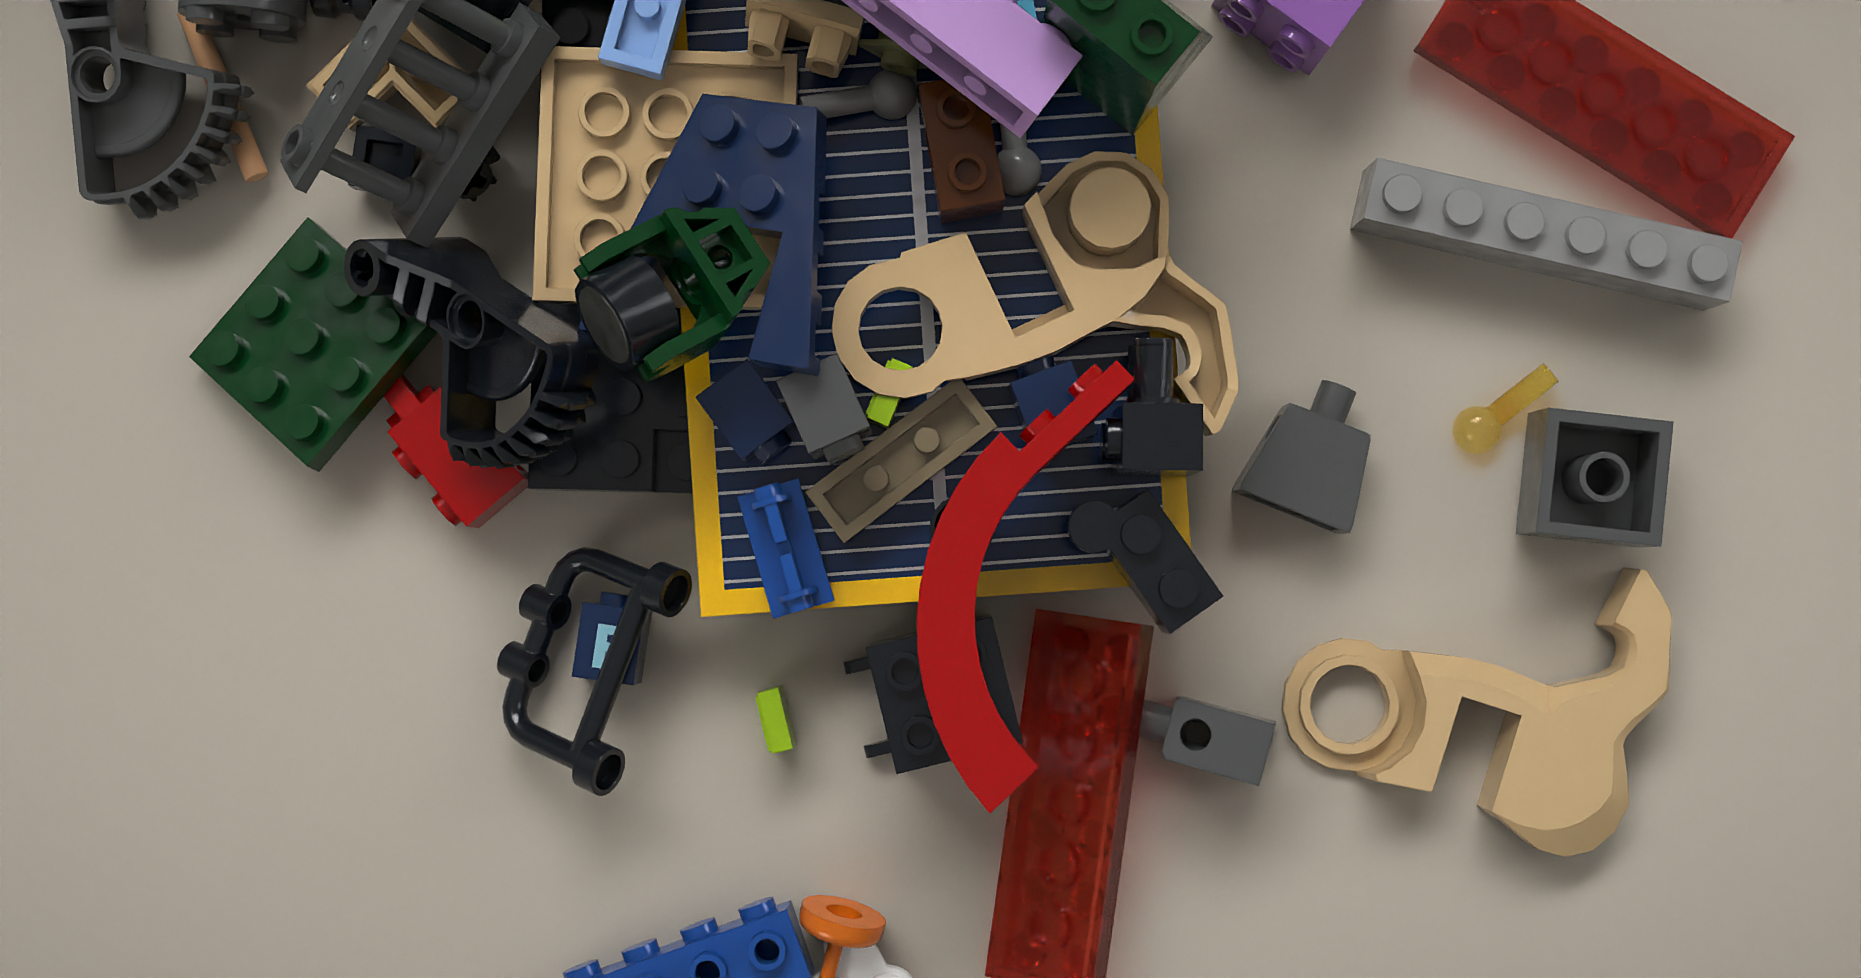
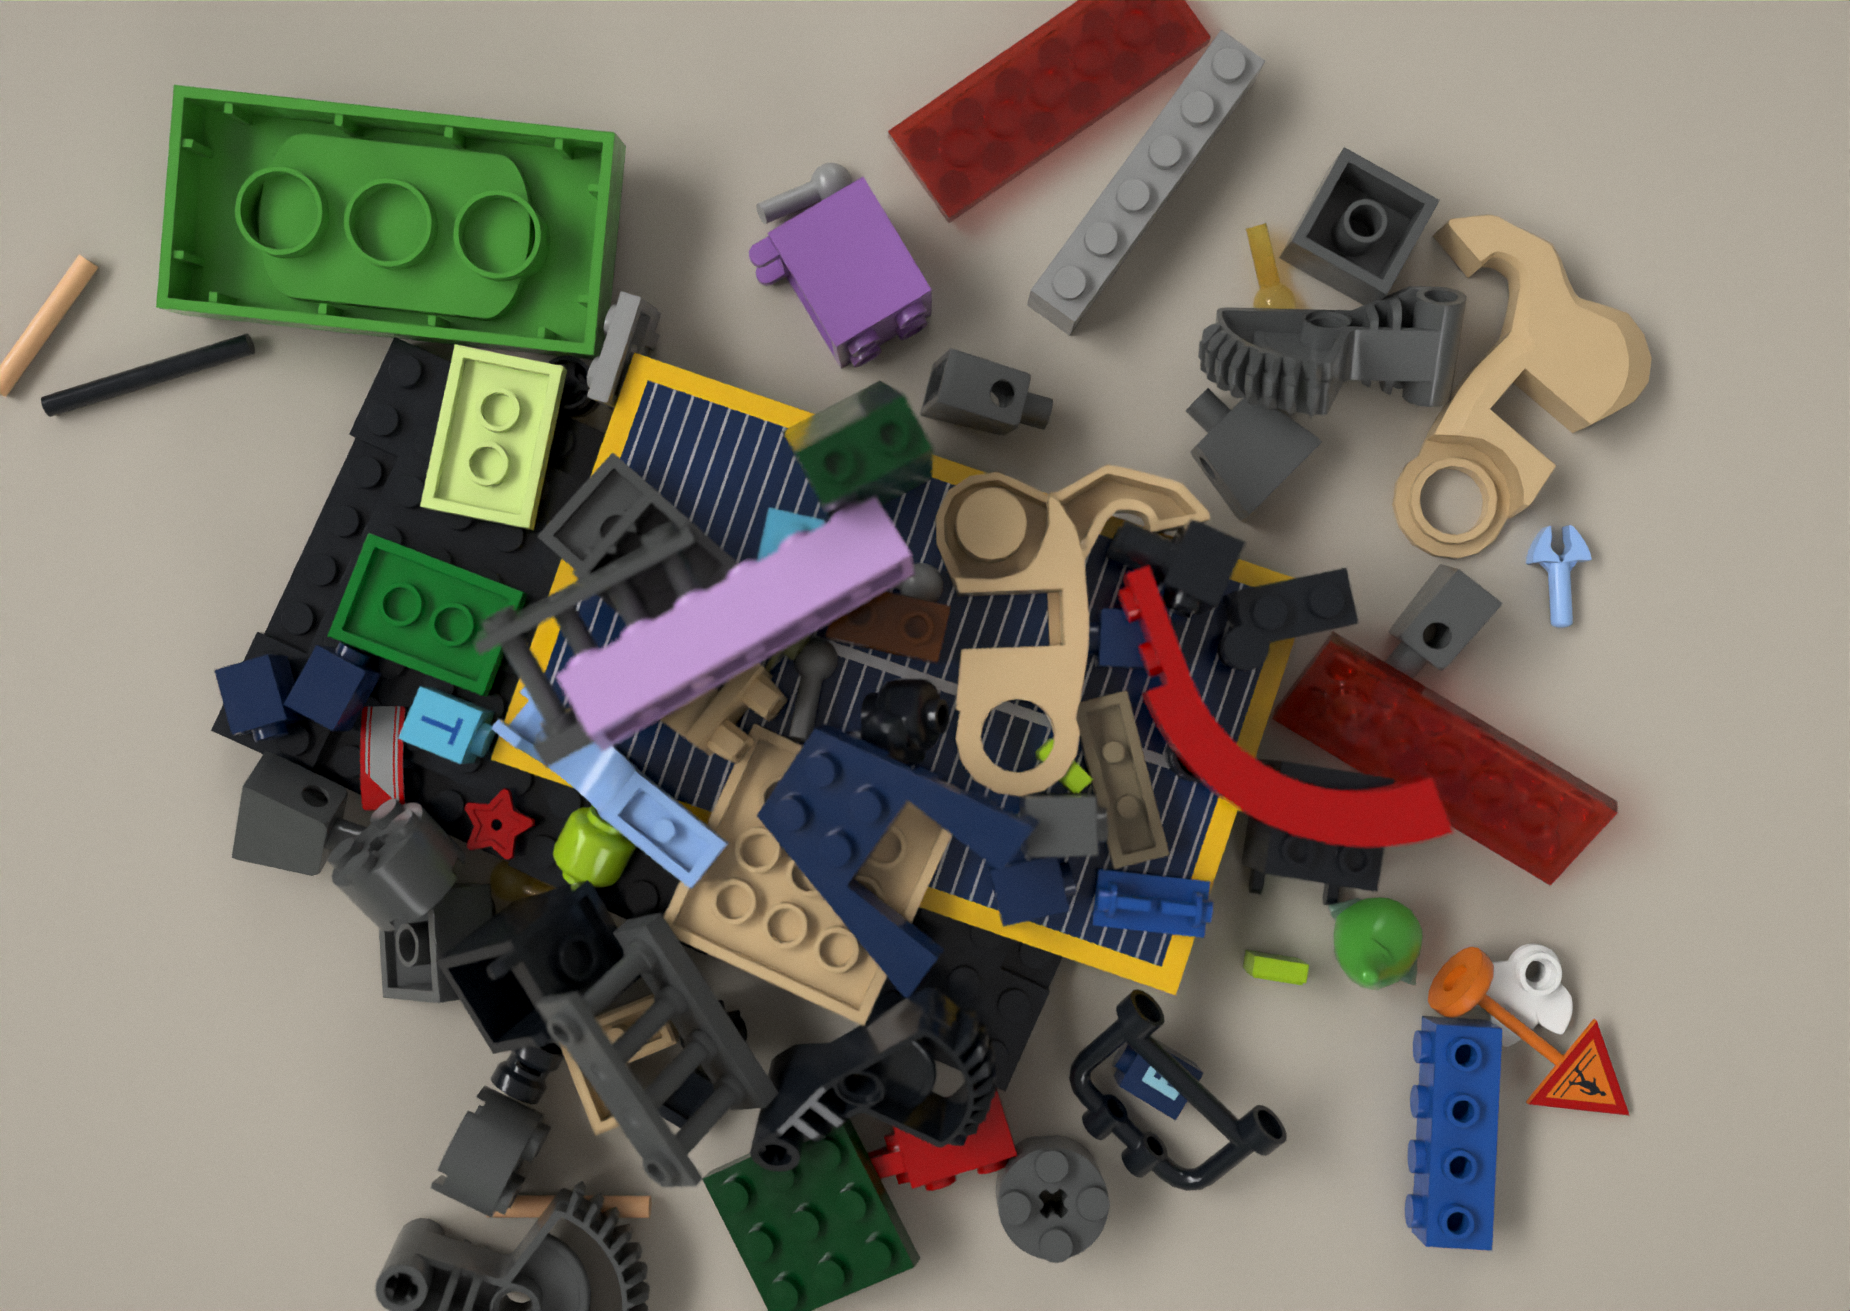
camera: 70 degrees left, 0 degrees up
(408, 601) = (1052, 1228): none -> dark grey brick
(632, 310) = (919, 953): dark green piece -> none
(847, 813) = (1376, 941): none -> bright green hat
(866, 206) = (904, 719): none -> black head
(1250, 132) = (961, 395): none -> dark grey torso
(1322, 849) = (1559, 569): none -> light blue bar
(1433, 476) = (1305, 355): none -> dark grey arm

